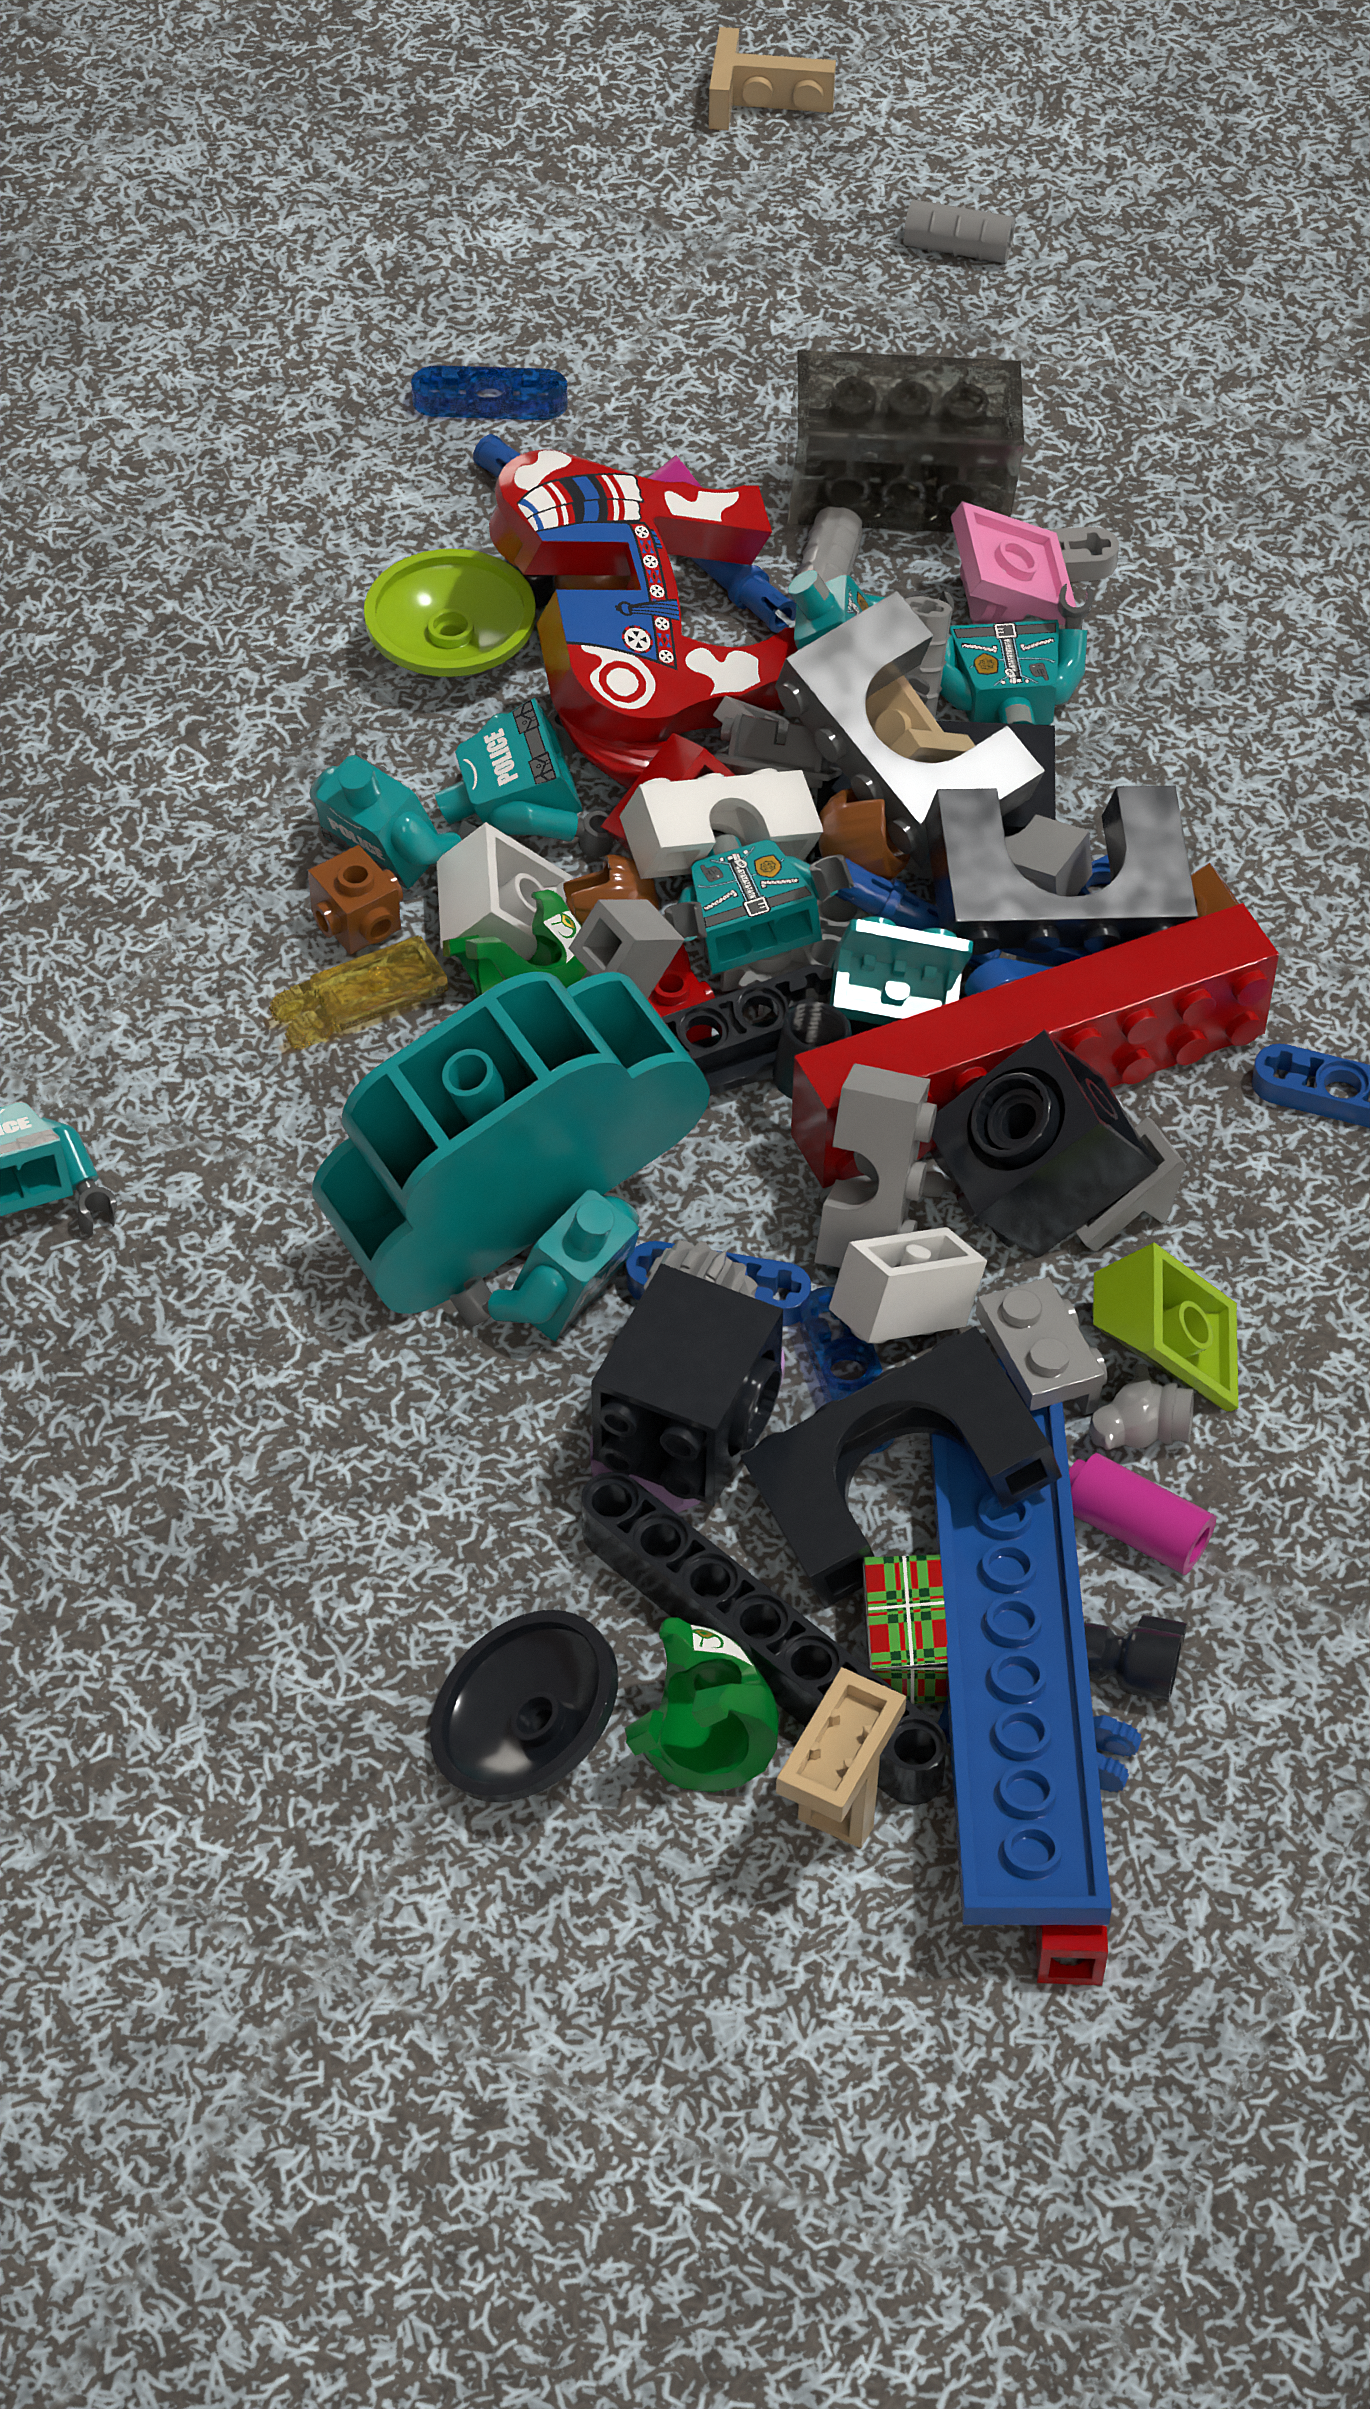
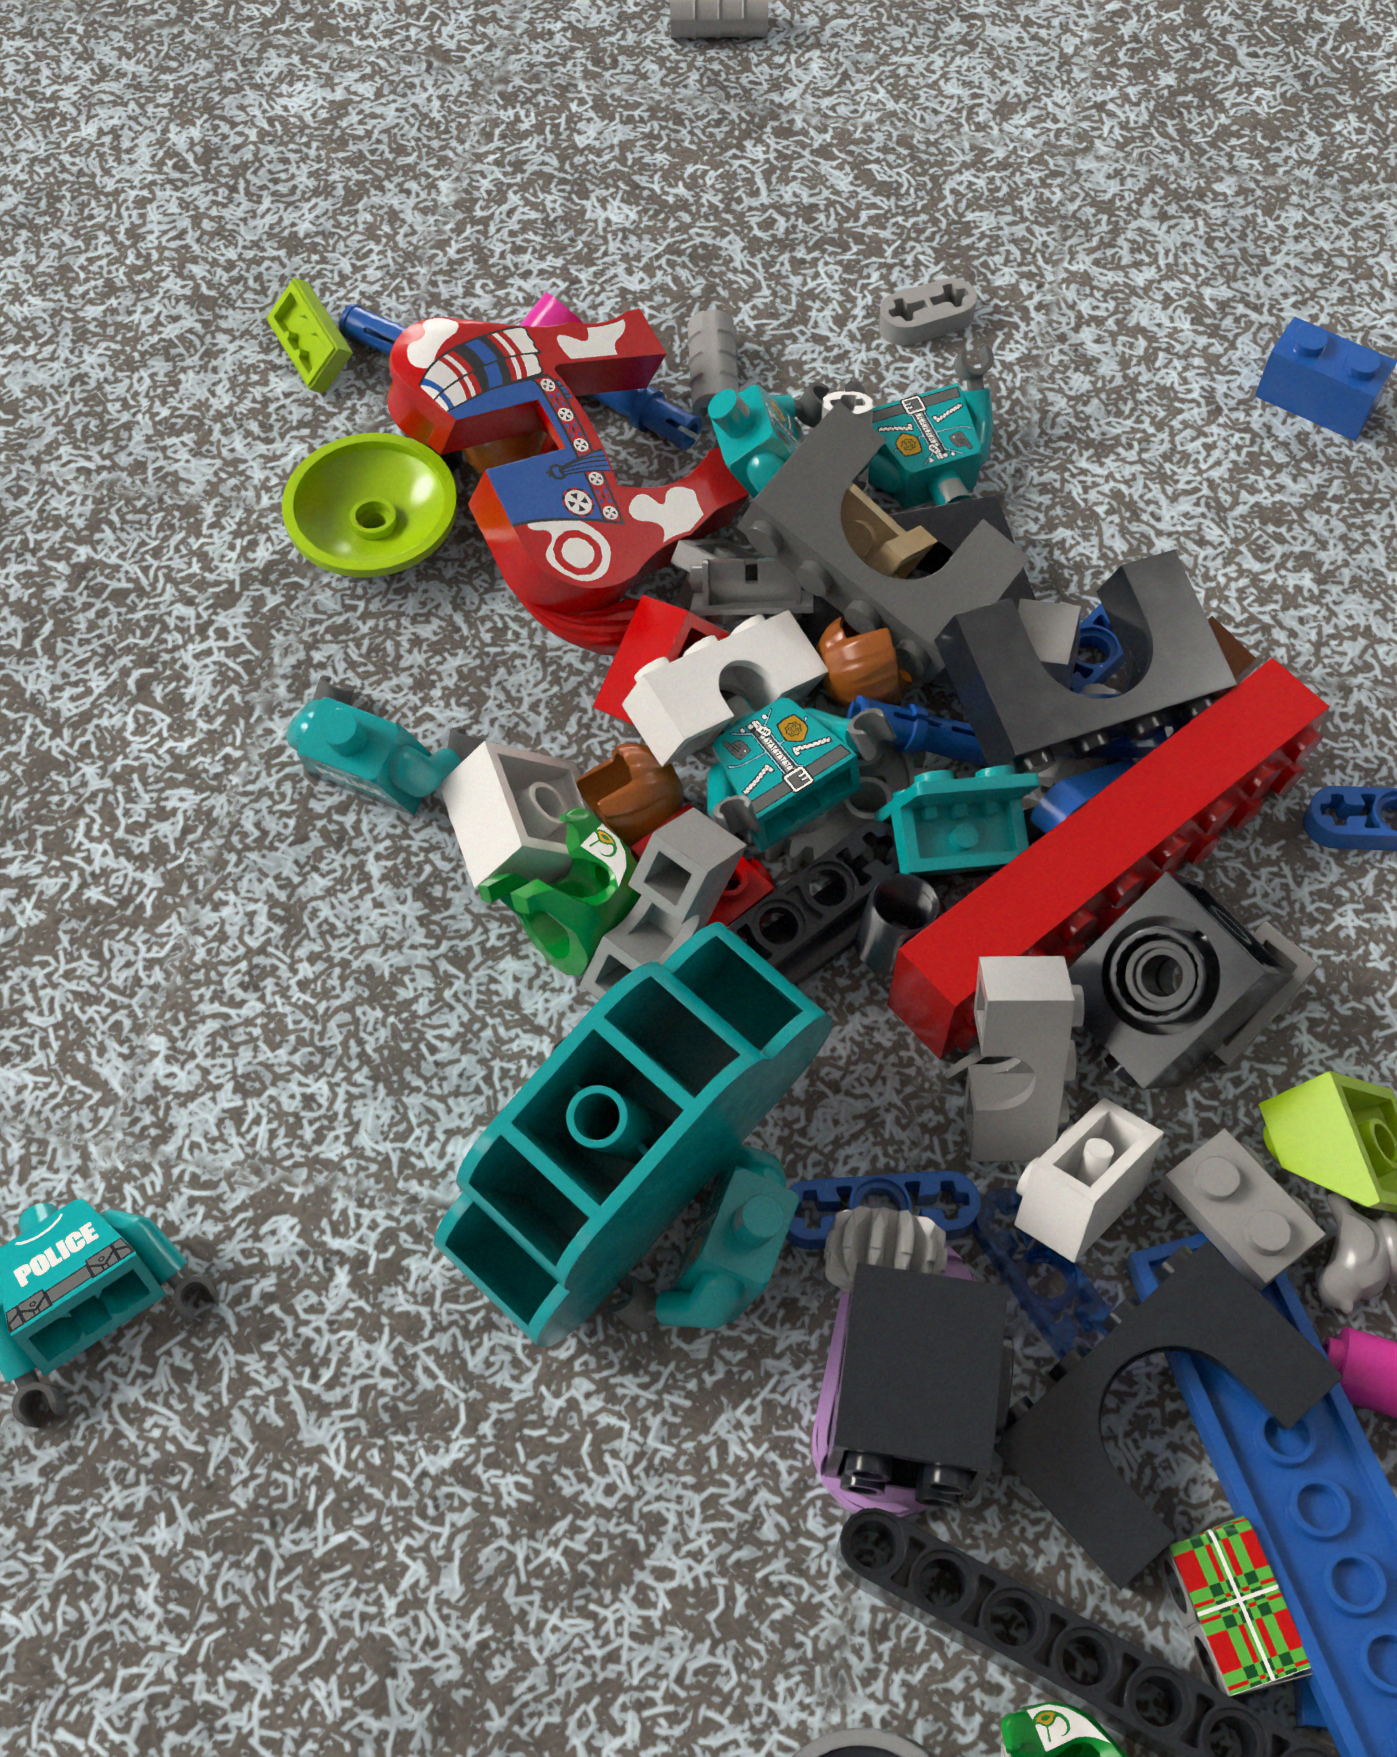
camera: 15 degrees left, 10 degrees up
(355, 899) = (369, 852): dark orange brick -> none
(358, 991) = (403, 952): clear yellow hinge -> none
(441, 455) = (309, 335): none -> lime plate
(473, 379) = (347, 244): clear blue beam -> none
(522, 781) = (497, 674): teal torso -> none
(903, 437) = (756, 229): clear smoke brick -> none
(1008, 567) = (891, 341): bright pink bracket -> none

